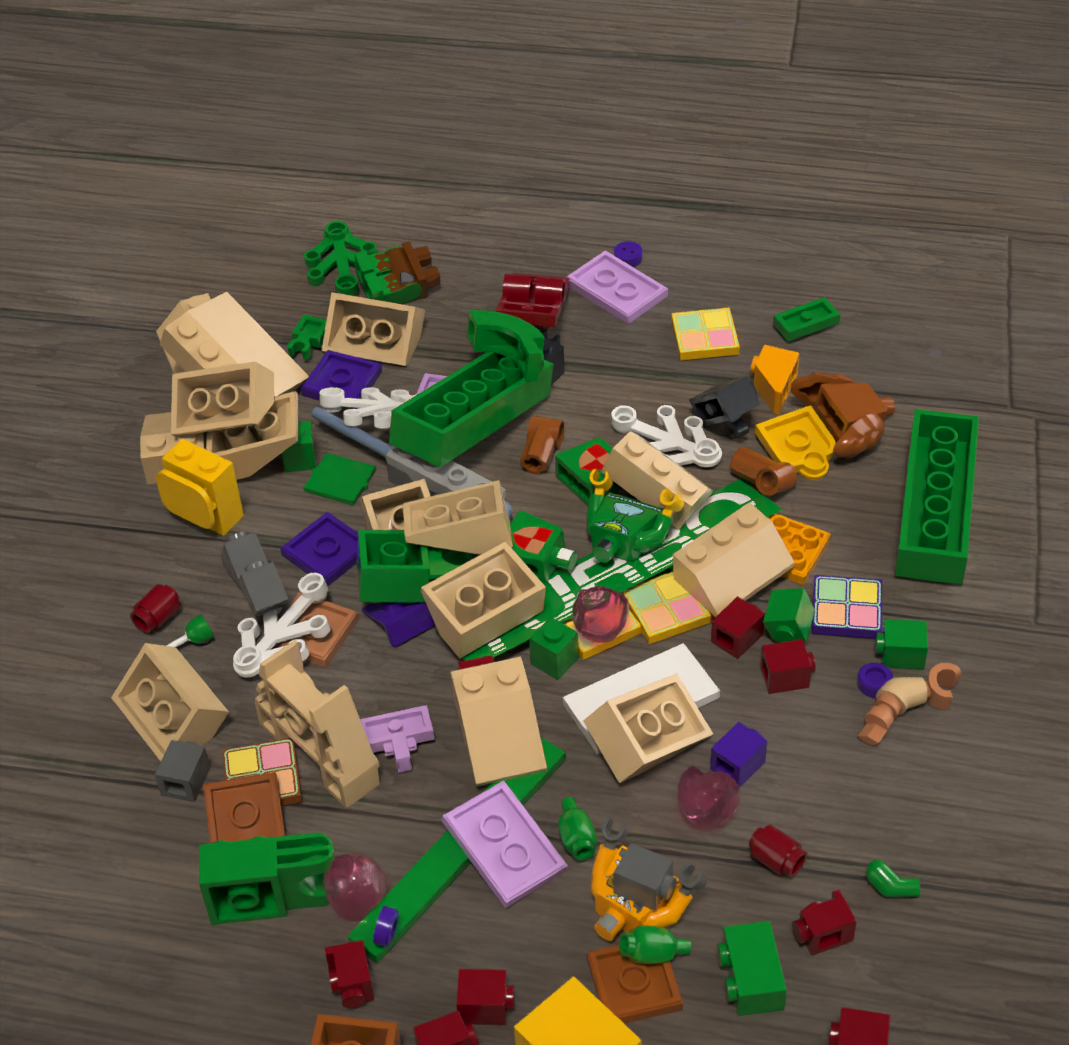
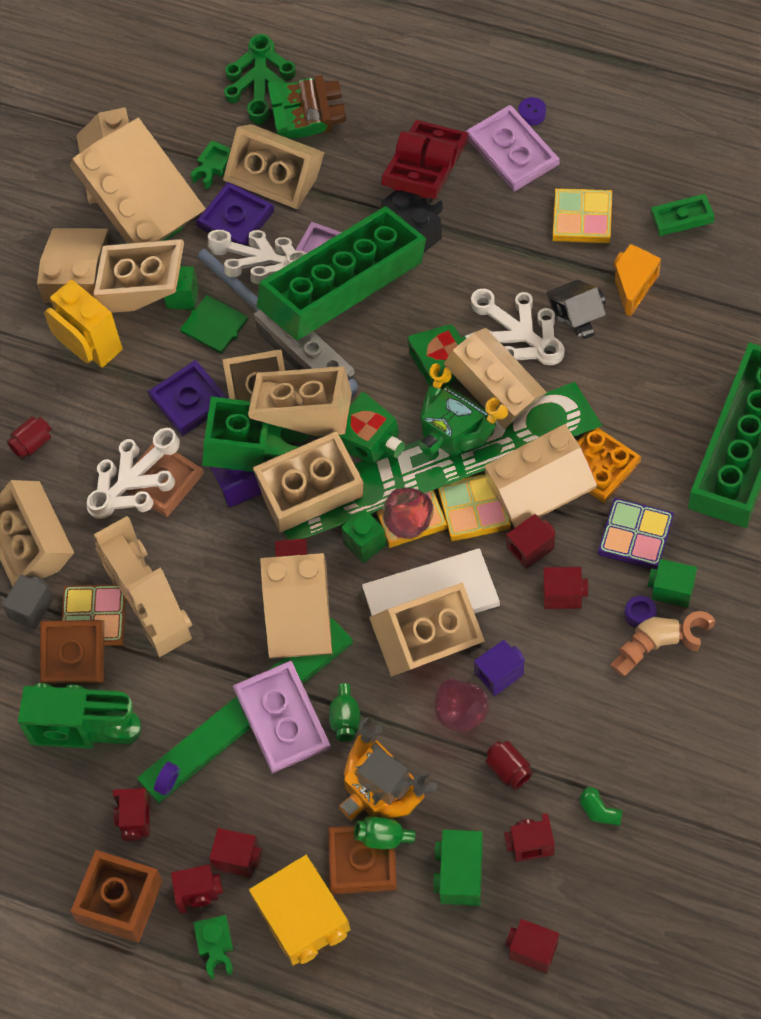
camera: 15 degrees right, 15 degrees up
(196, 631) = (61, 466): green hinge -> none
(220, 398) = (113, 240): tan slope -> none
(255, 576) = (116, 421): dark grey arch -> none
(354, 885) = (149, 735): clear pink hair -> none
(399, 733) = (212, 596): lavender hinge -> none
(509, 337) = (389, 206): green arch -> none
(542, 438) = (403, 311): dark orange piece -> none
(763, 472) = (598, 387): dark orange piece -> none
(789, 615) = (577, 538): green brick -> none
(799, 440) = (637, 353): yellow plate -> none
(847, 409) = (692, 328): dark orange torso -> none

